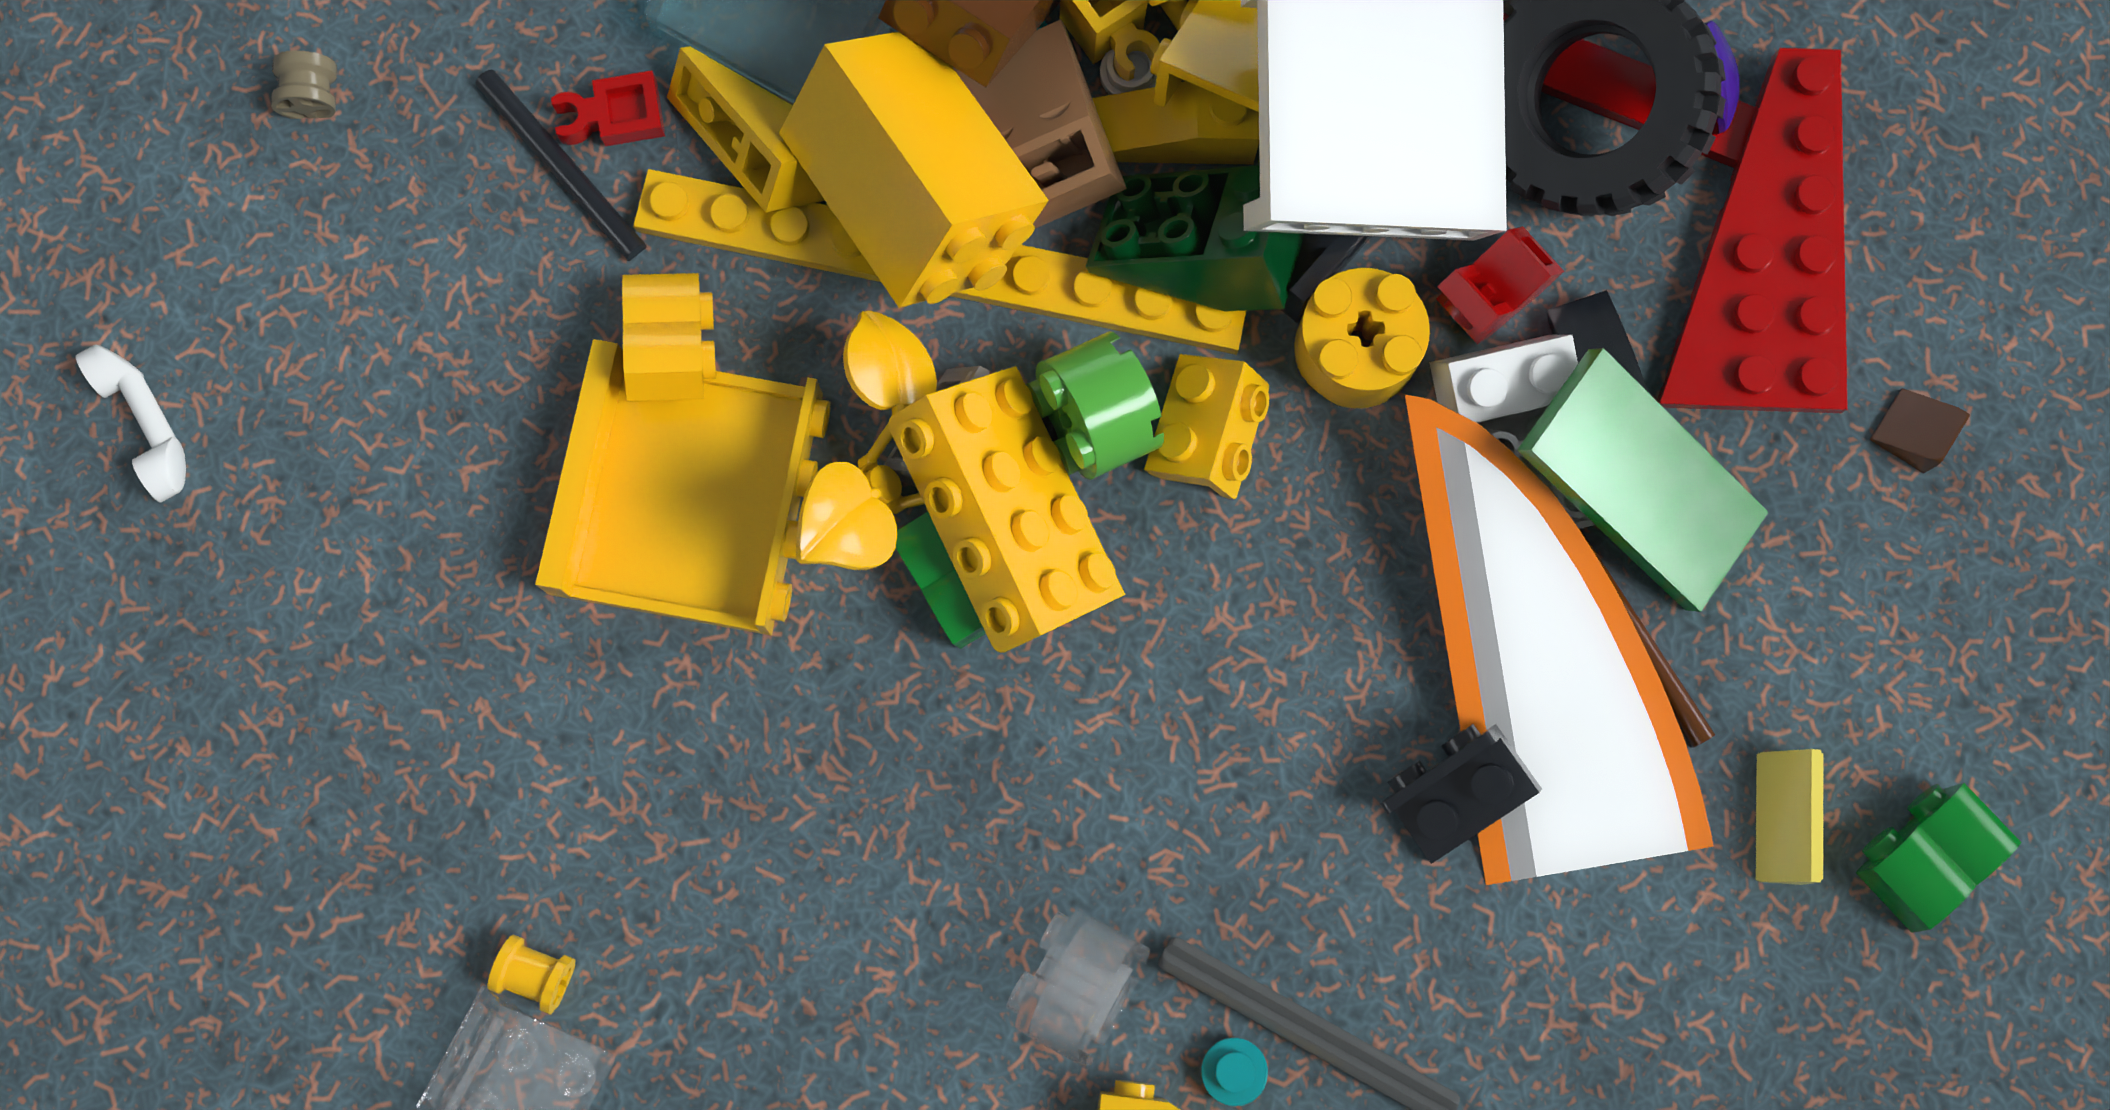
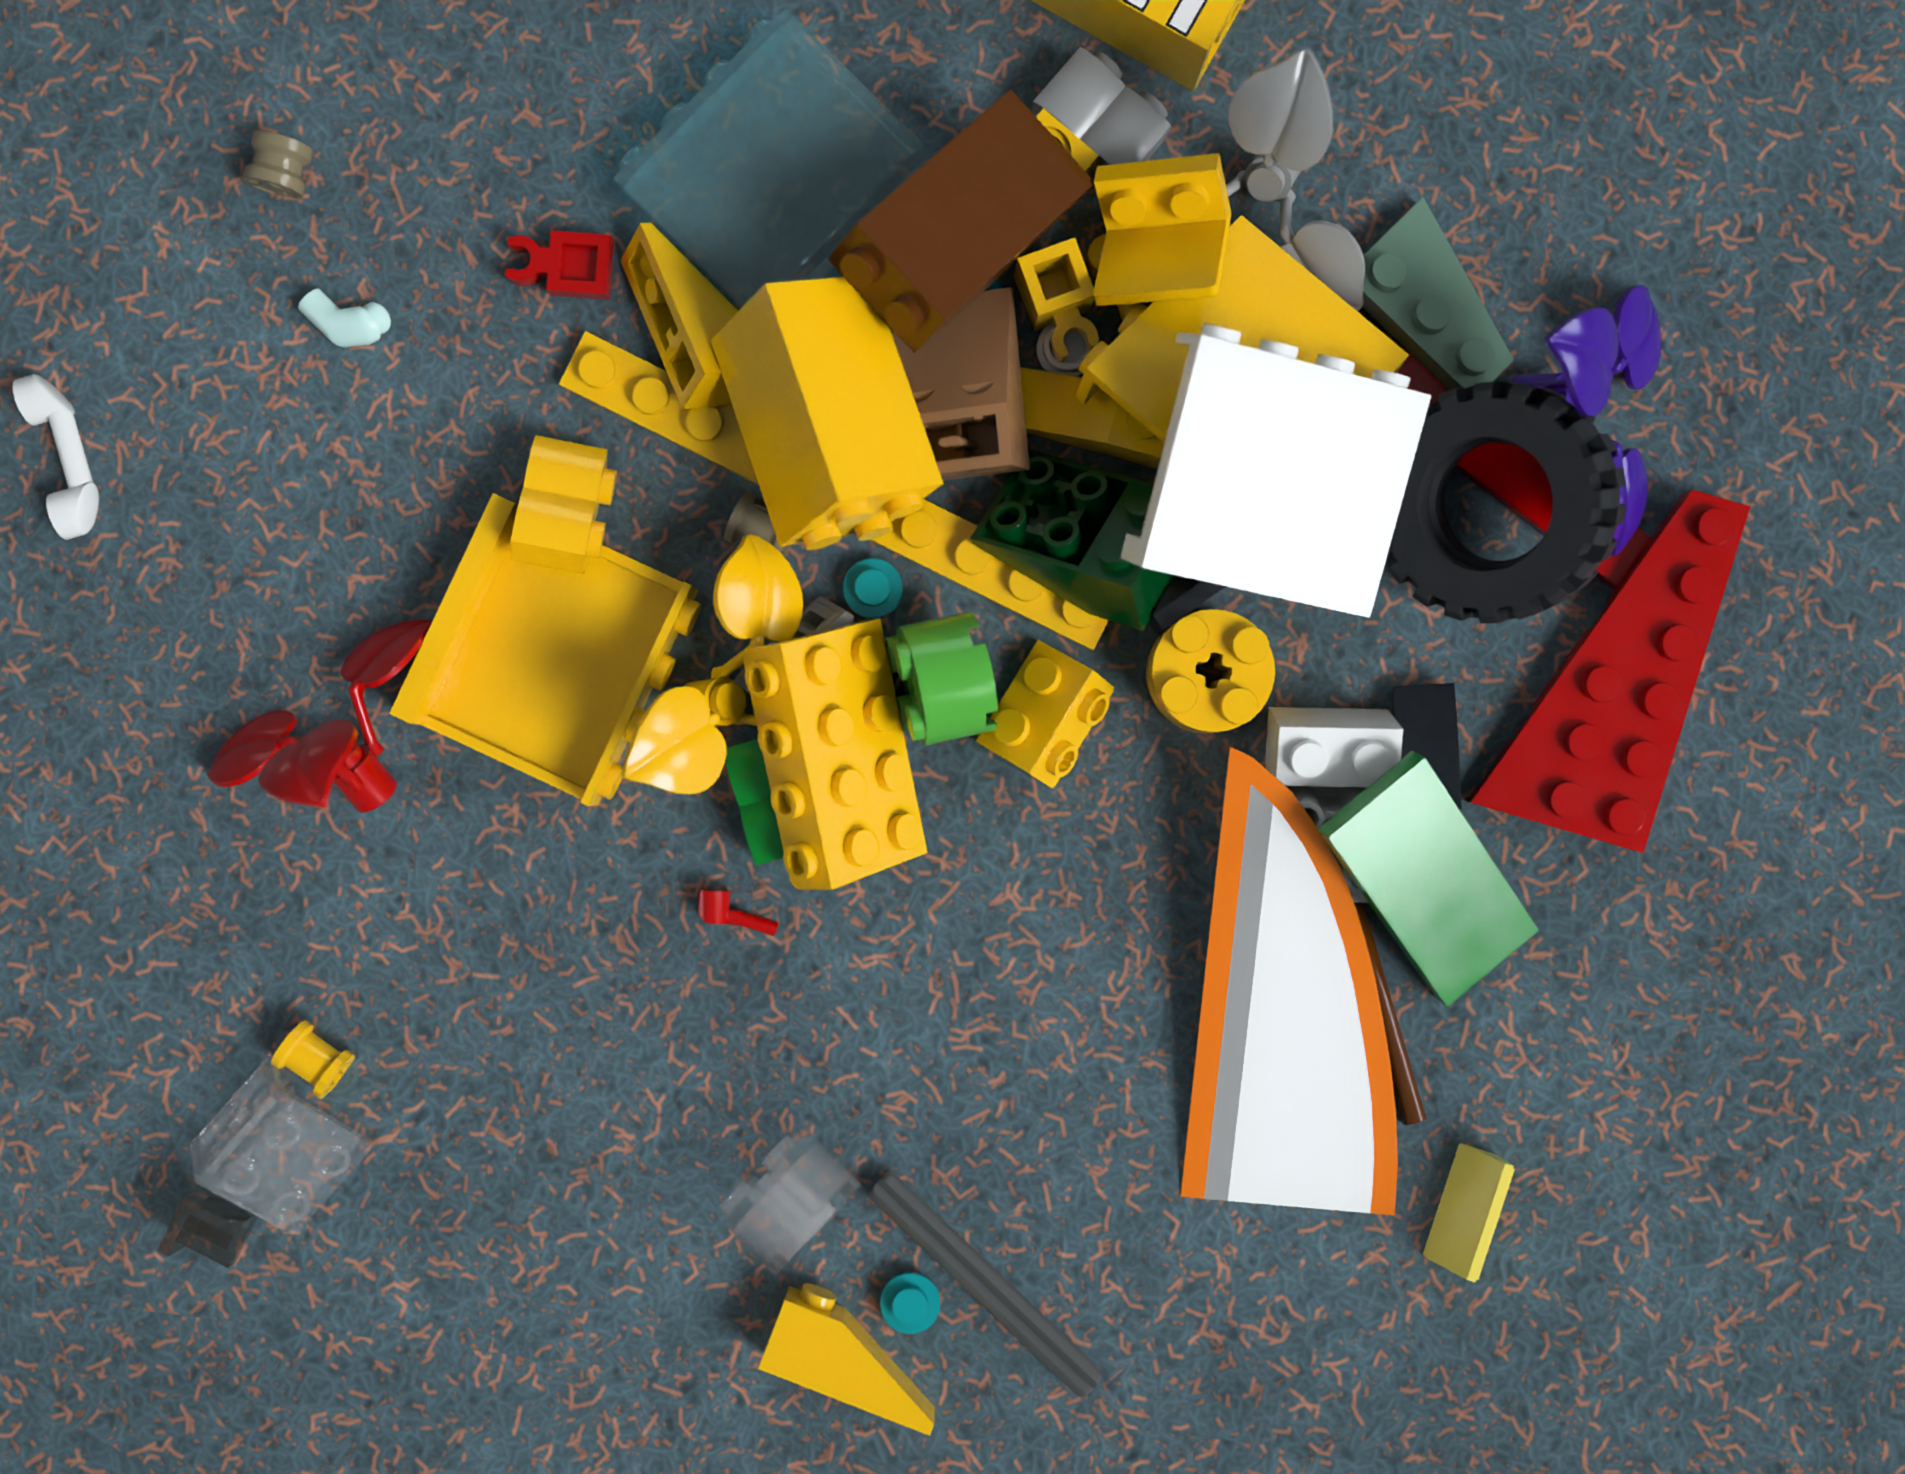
camera: 15 degrees right, 10 degrees up
(406, 223) = (345, 326): none -> light aqua arm
(477, 628) = (328, 755): none -> red plant
(560, 164) = (504, 302): black bar -> none
(857, 300) = (752, 519): none -> dark tan bush
(918, 704) = (714, 908): none -> red hand
(999, 343) = (872, 588): none -> teal plate
(1462, 792) = (1179, 1115): black bracket -> none
(1498, 284) = (1354, 653): red brick -> none
(1919, 429) = (1705, 888): reddish brown slope -> none
(1936, 856) = (1589, 1280): green brick -> none

